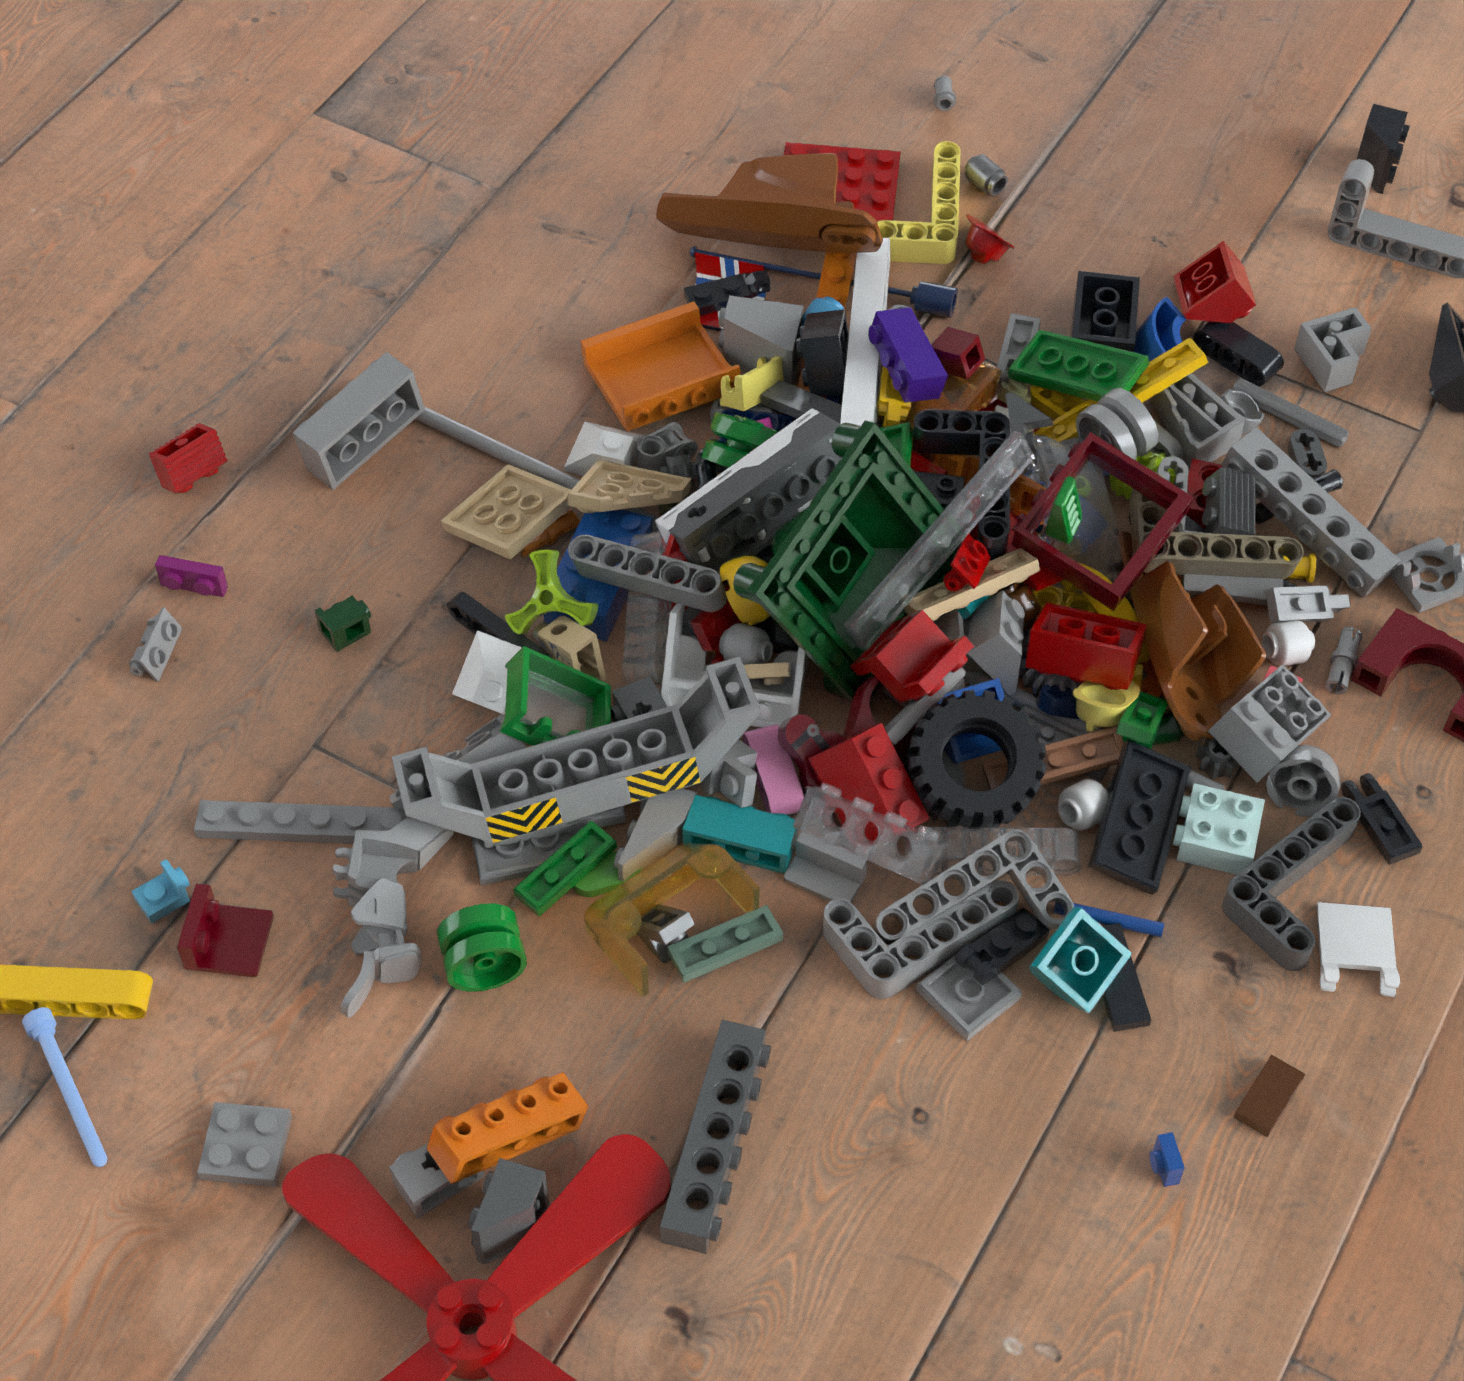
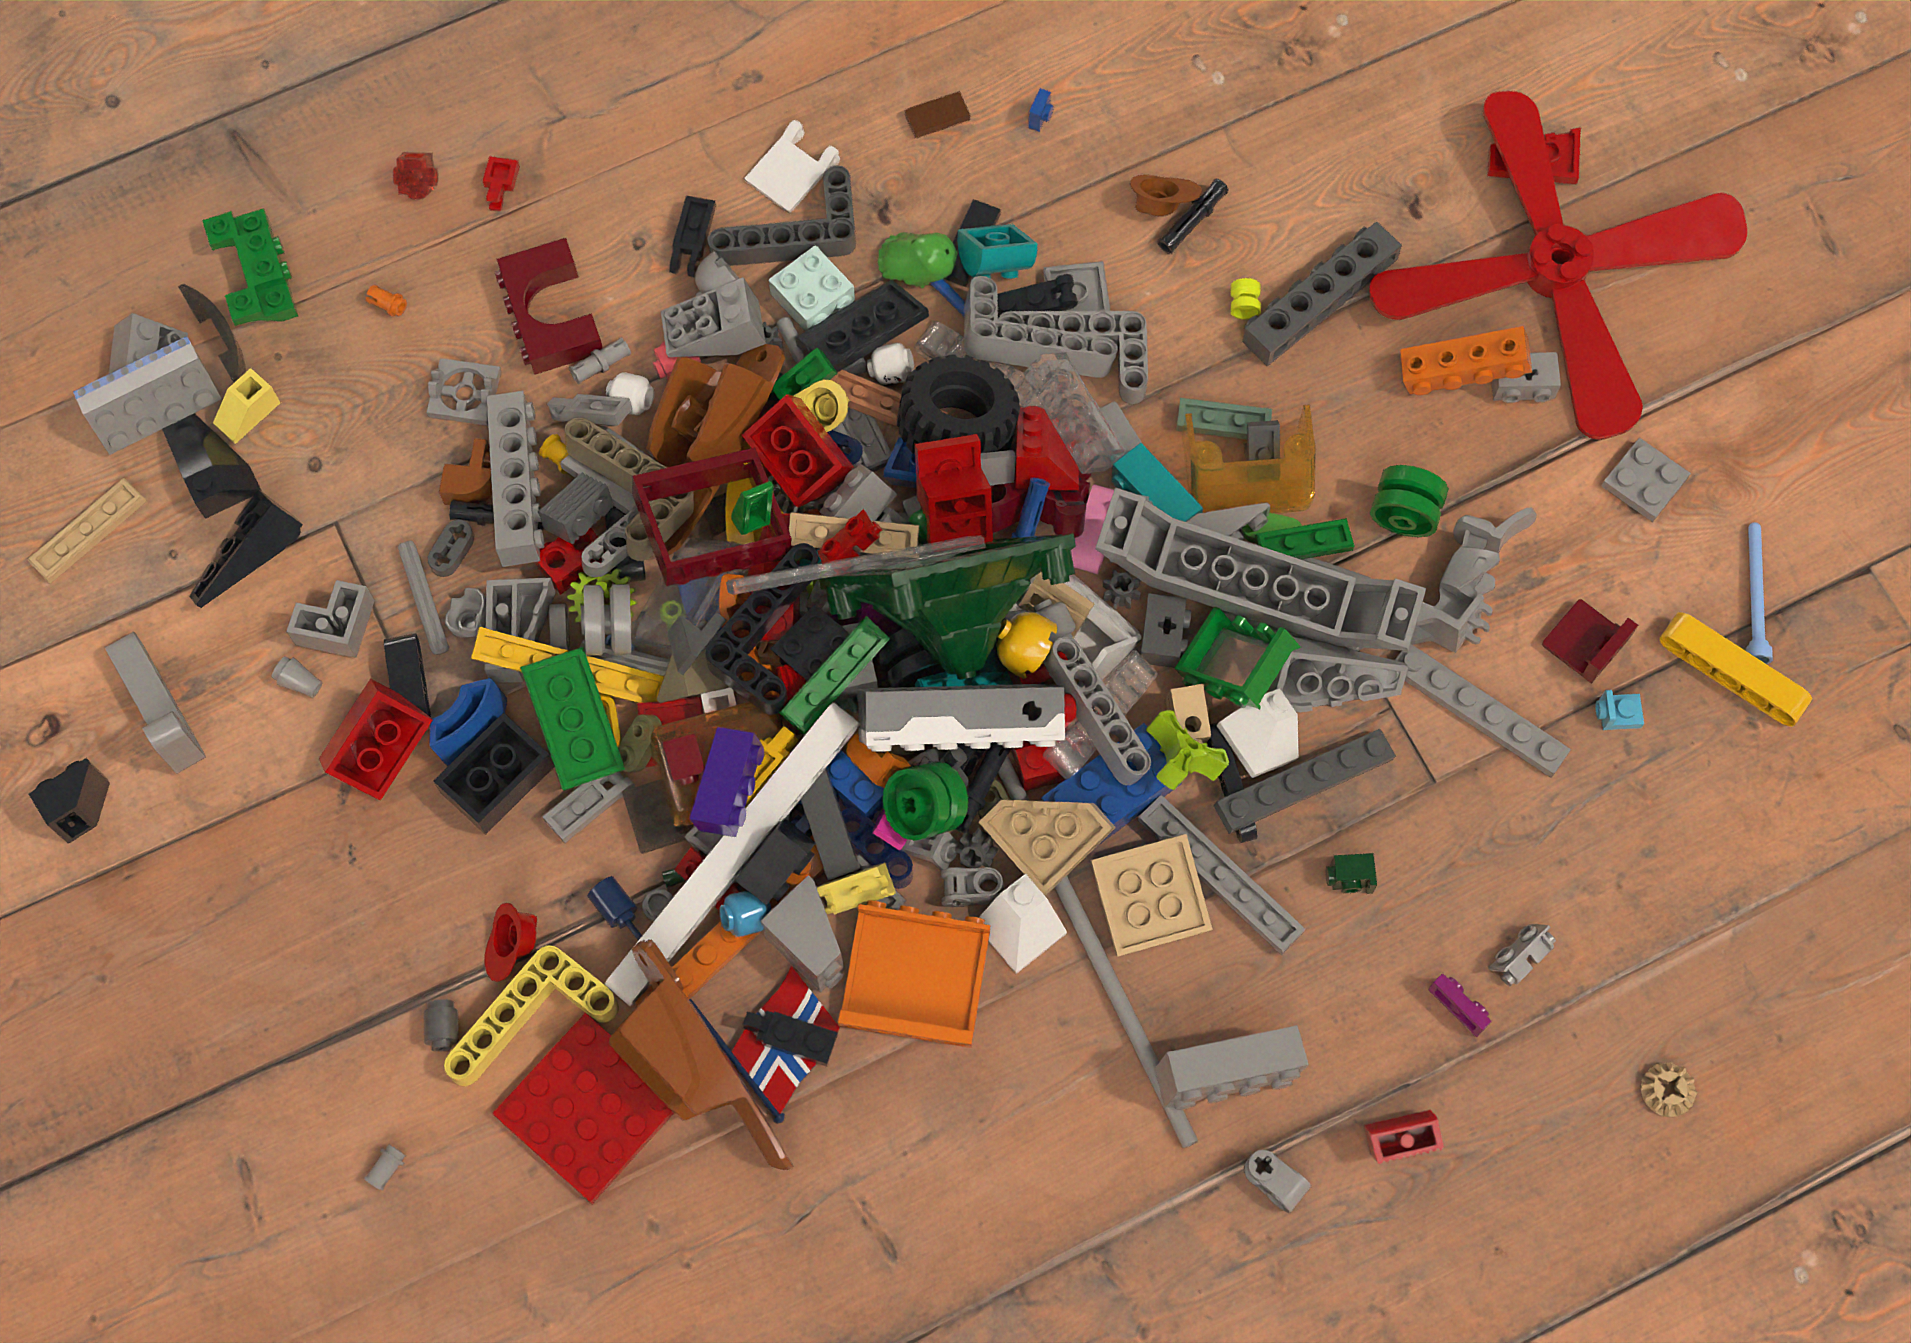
camera: 145 degrees left, 15 degrees up
(278, 390) = (1282, 1184): none -> light grey piece
(429, 663) = (1304, 781): none -> dark grey plate
(449, 563) = (1225, 877): none -> light grey plate
(511, 1206) = (1496, 306): dark grey slope -> none
(791, 1079) = (1245, 298): none -> neon yellow wheel
(833, 715) = (1032, 508): none -> blue pin
(910, 1182) = (1199, 209): none -> black pin
(961, 1135) = (1162, 195): none -> dark orange piece
(1152, 921) = (917, 258): none -> bright green piece
(1319, 307) = (294, 676): none -> light grey cone
(1354, 495) = (469, 482): none -> dark orange brick

